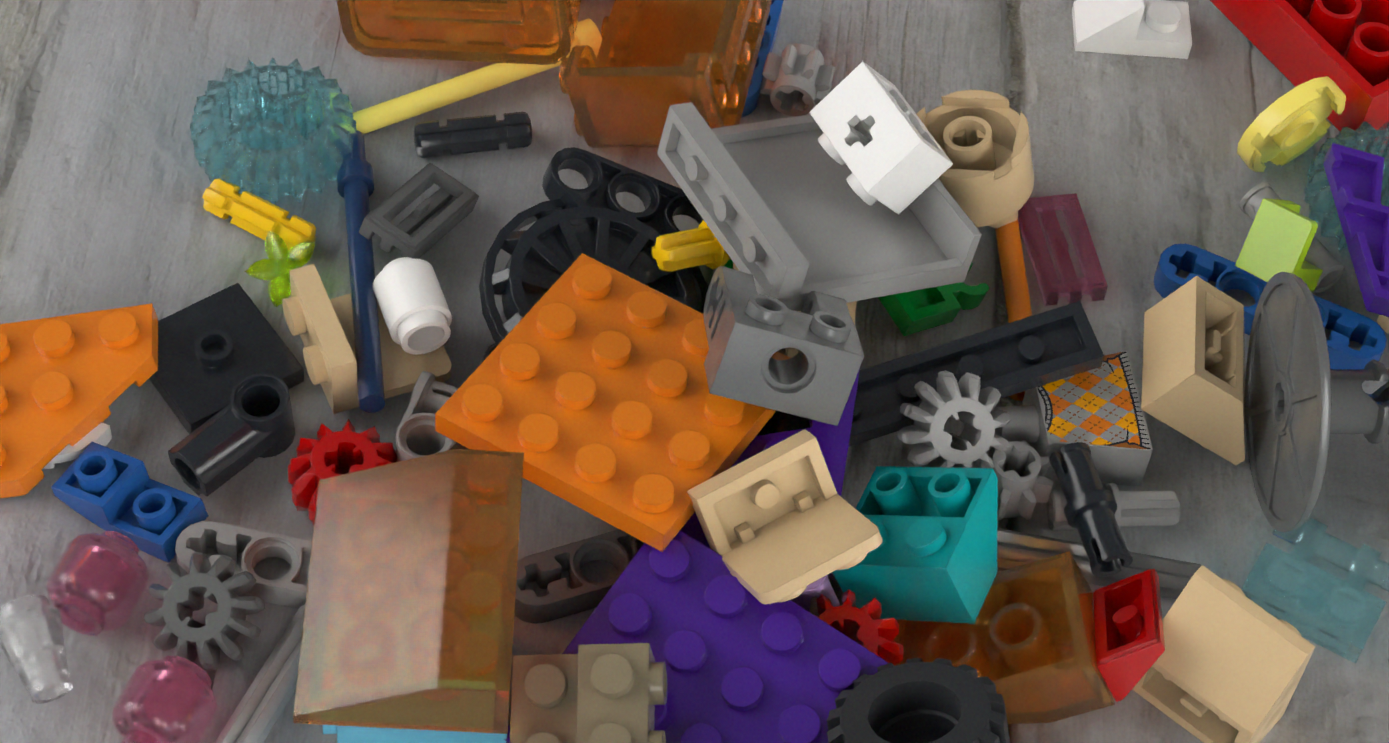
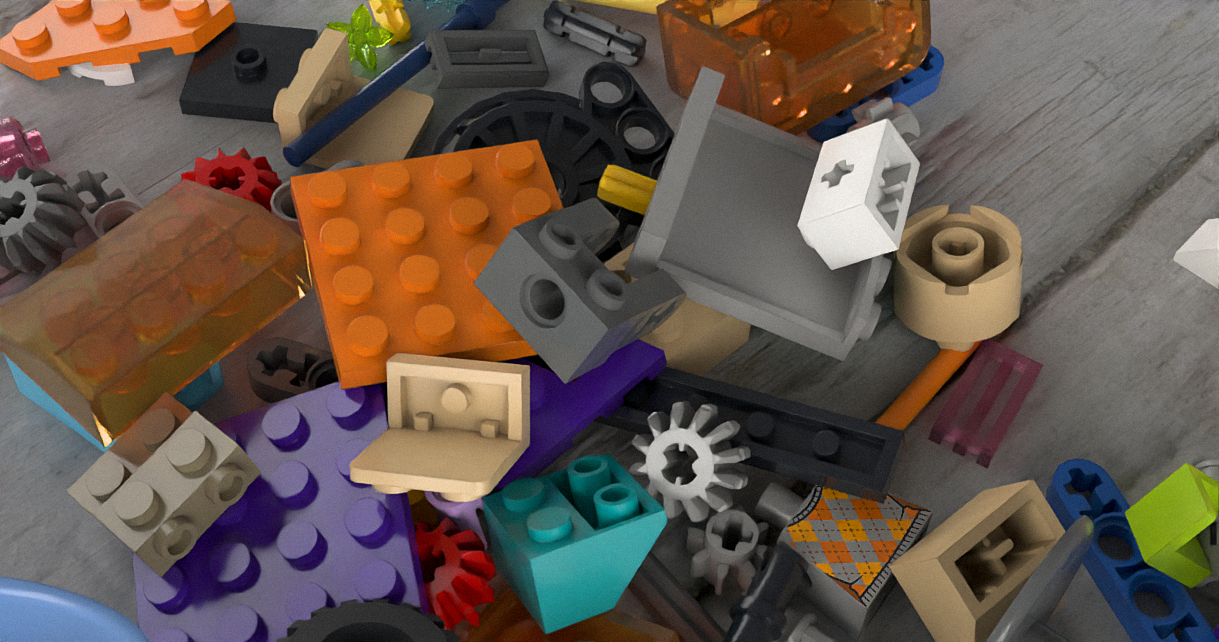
camera: 45 degrees right, 0 degrees up
(122, 498) = (88, 121): blue slope -> none
(236, 435) = (212, 121): black piece -> none
(413, 305) = (398, 110): white brick -> none
(932, 306) = (820, 373): green plate -> none

